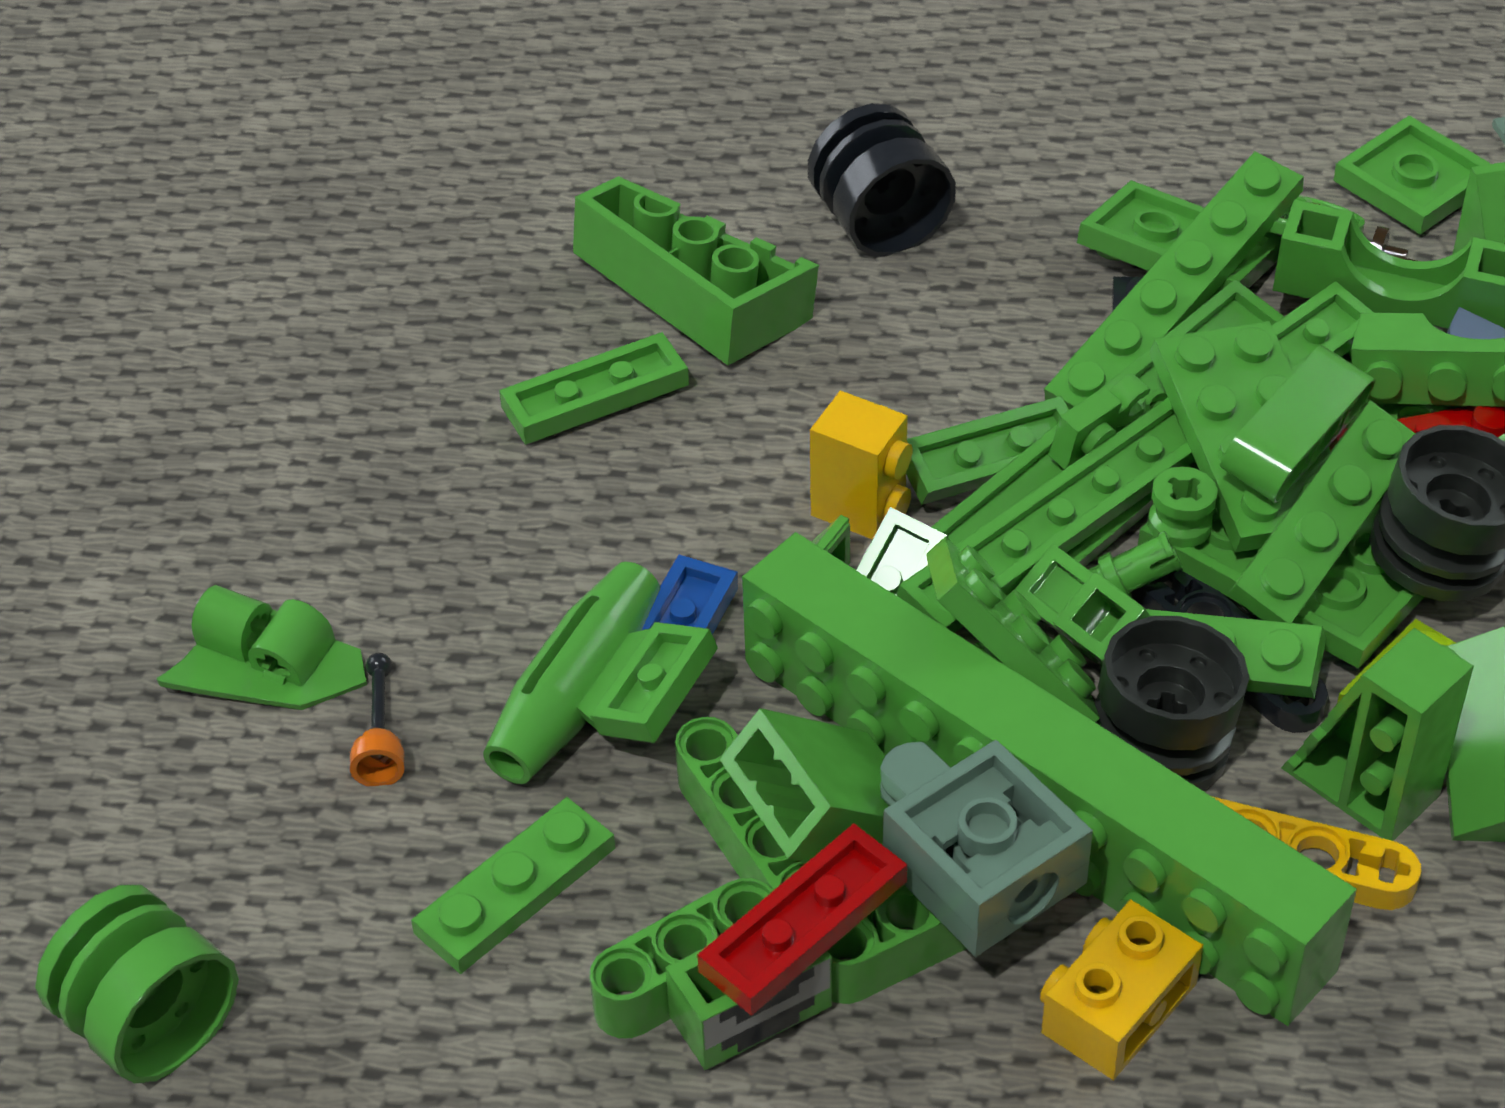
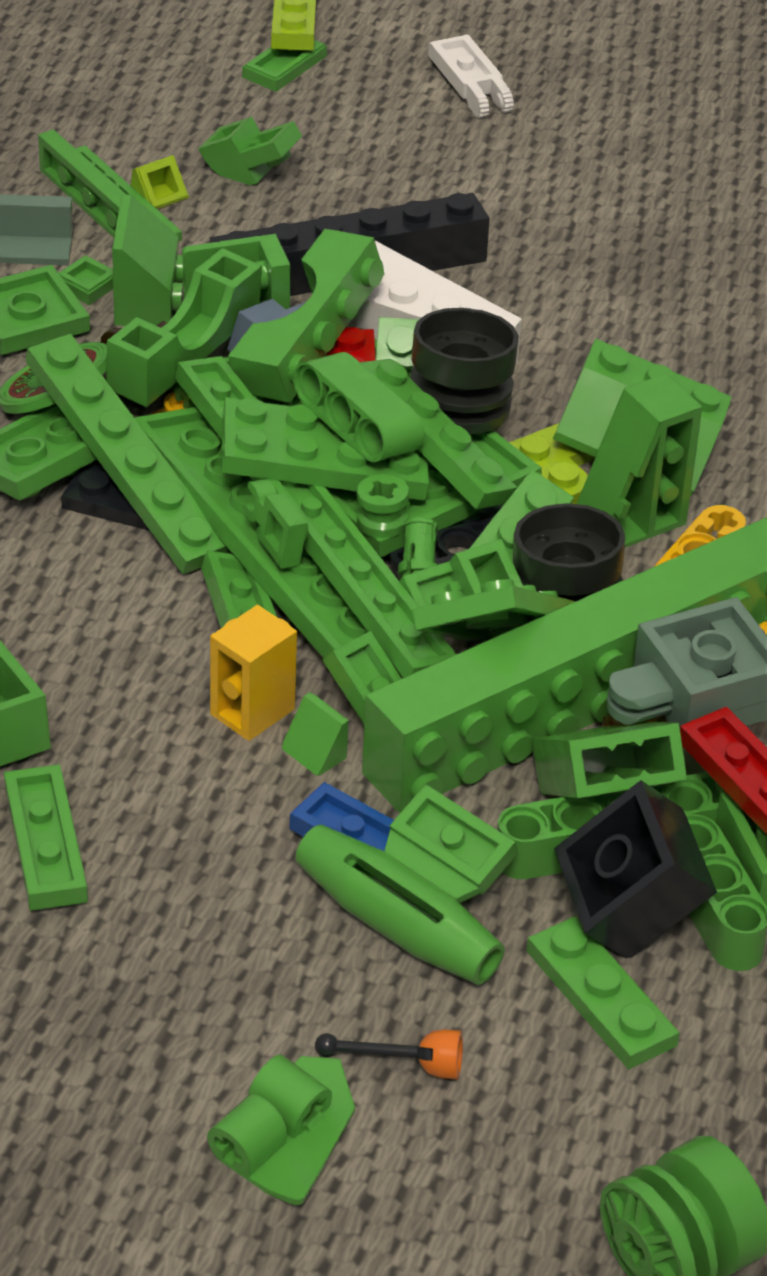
camera: 80 degrees left, 5 degrees down
(656, 853) = (634, 870): none -> black brick

